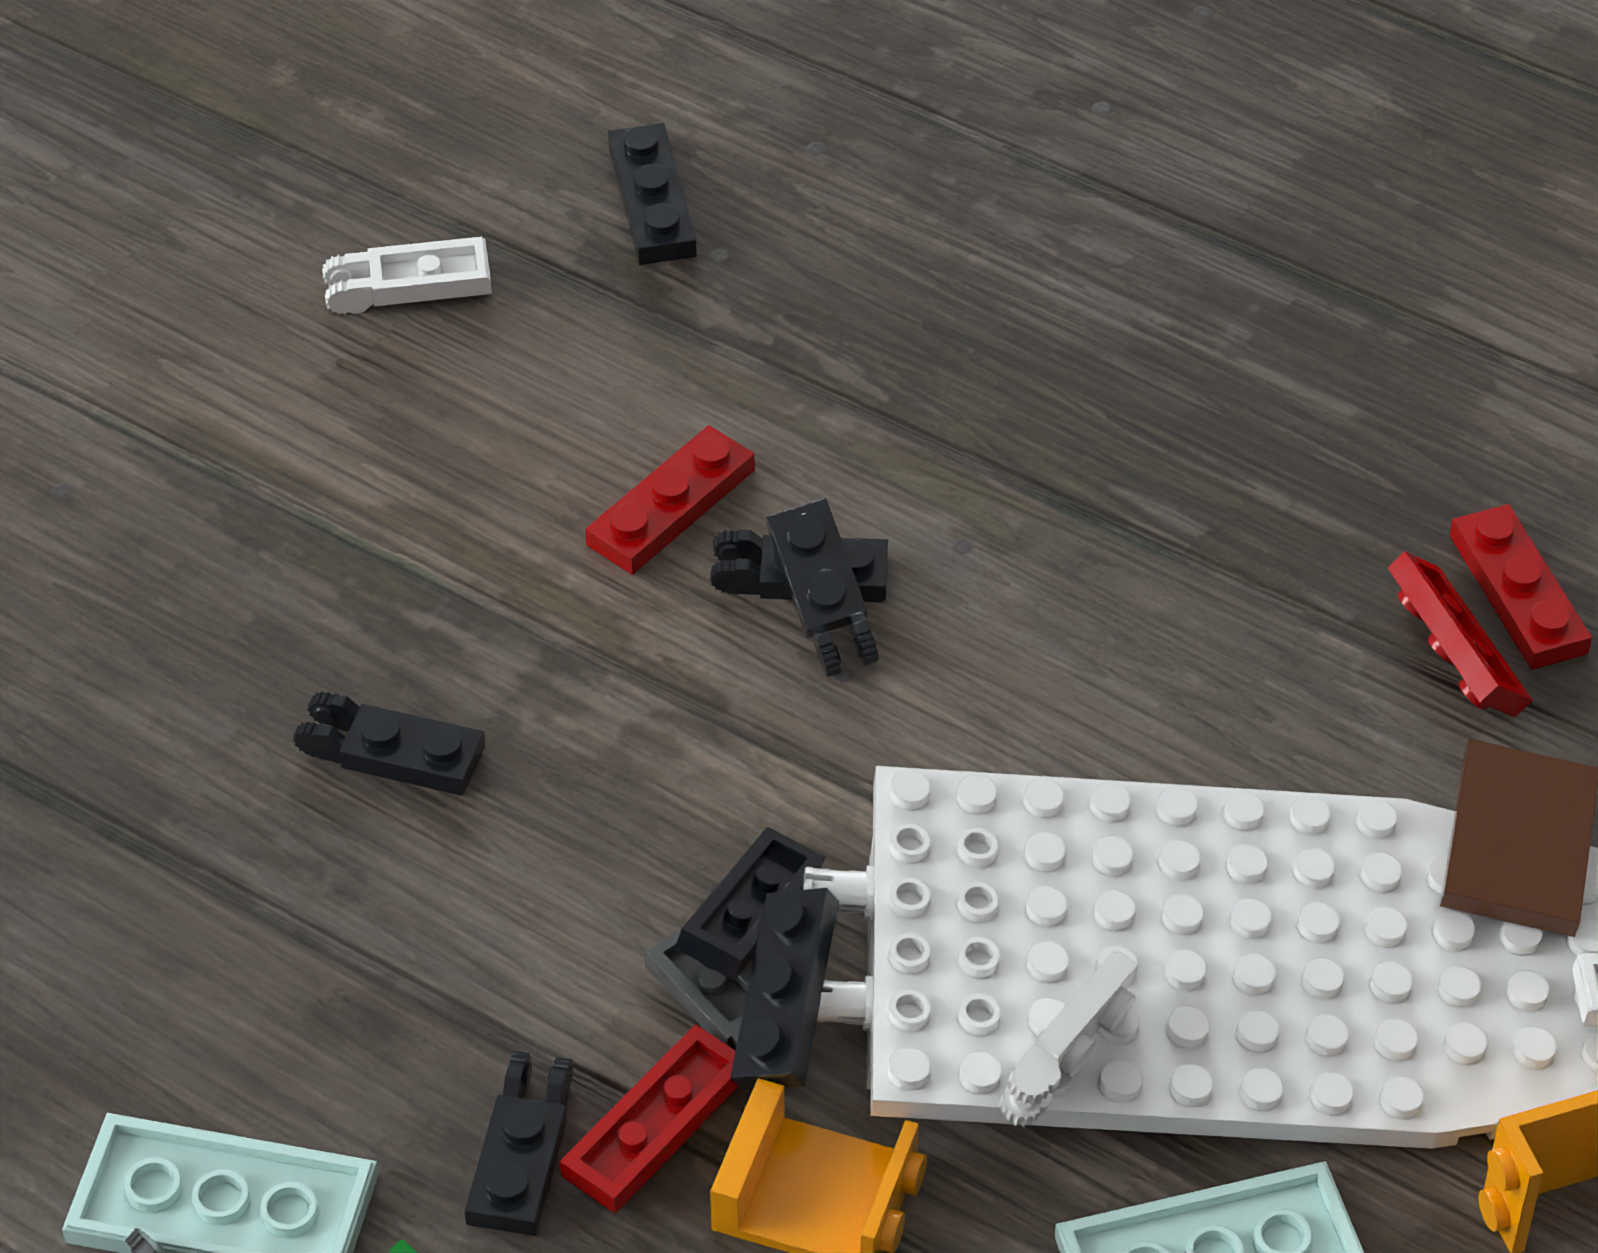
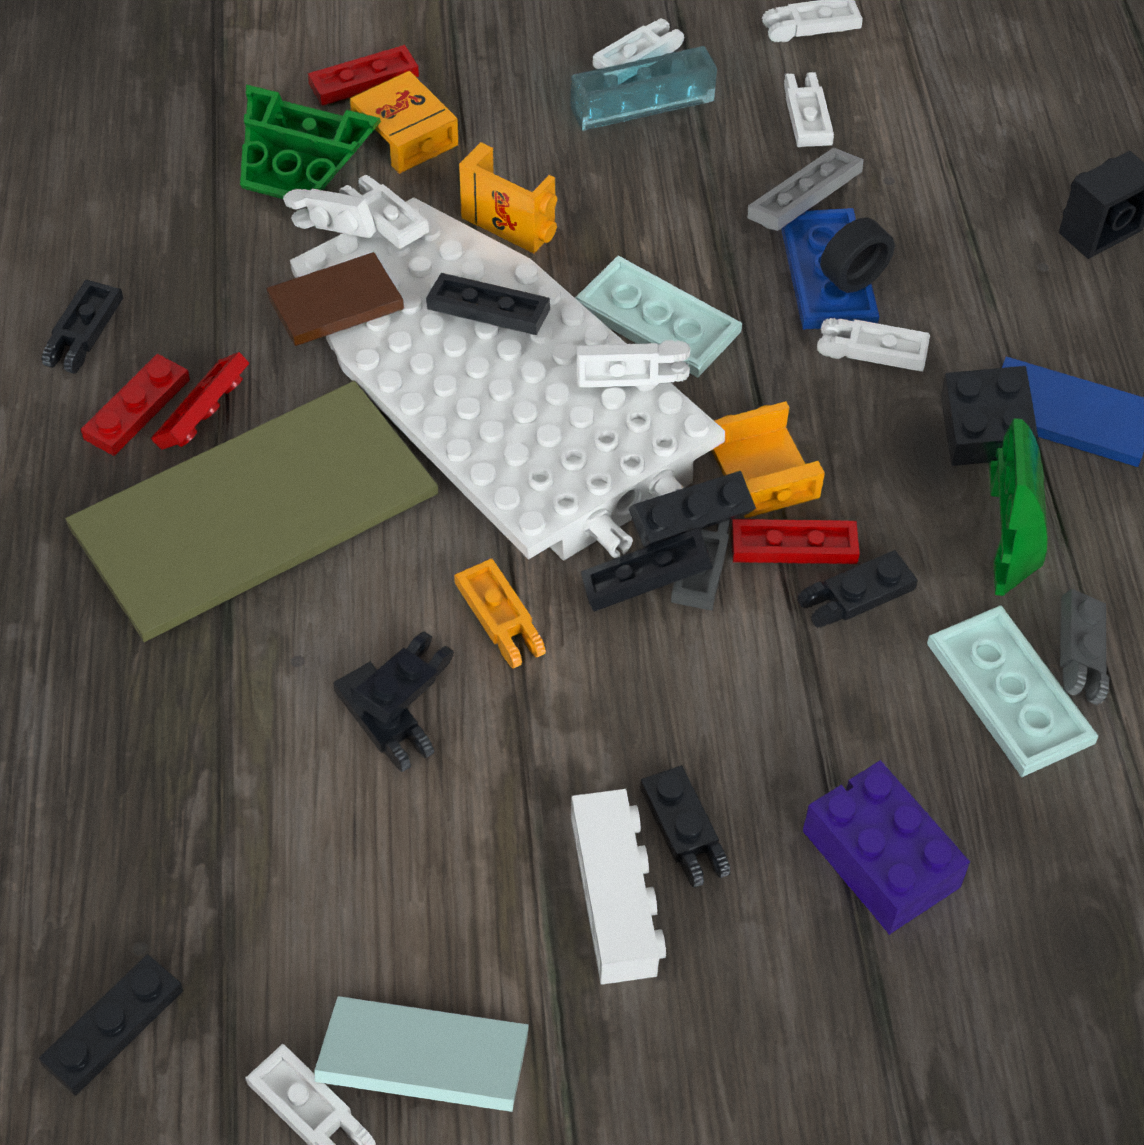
camera: 130 degrees left, 5 degrees up
(162, 882) = (885, 846): none -> dark purple piece
(368, 372) = (422, 1053): none -> light aqua tile
(383, 622) = (615, 886): none -> white brick
(670, 499) = (383, 818): red plate -> none
(836, 742) = (499, 610): none -> light orange hinge
(1229, 601) = (250, 509): none -> olive tile
(1347, 975) = (488, 303): none -> black plate

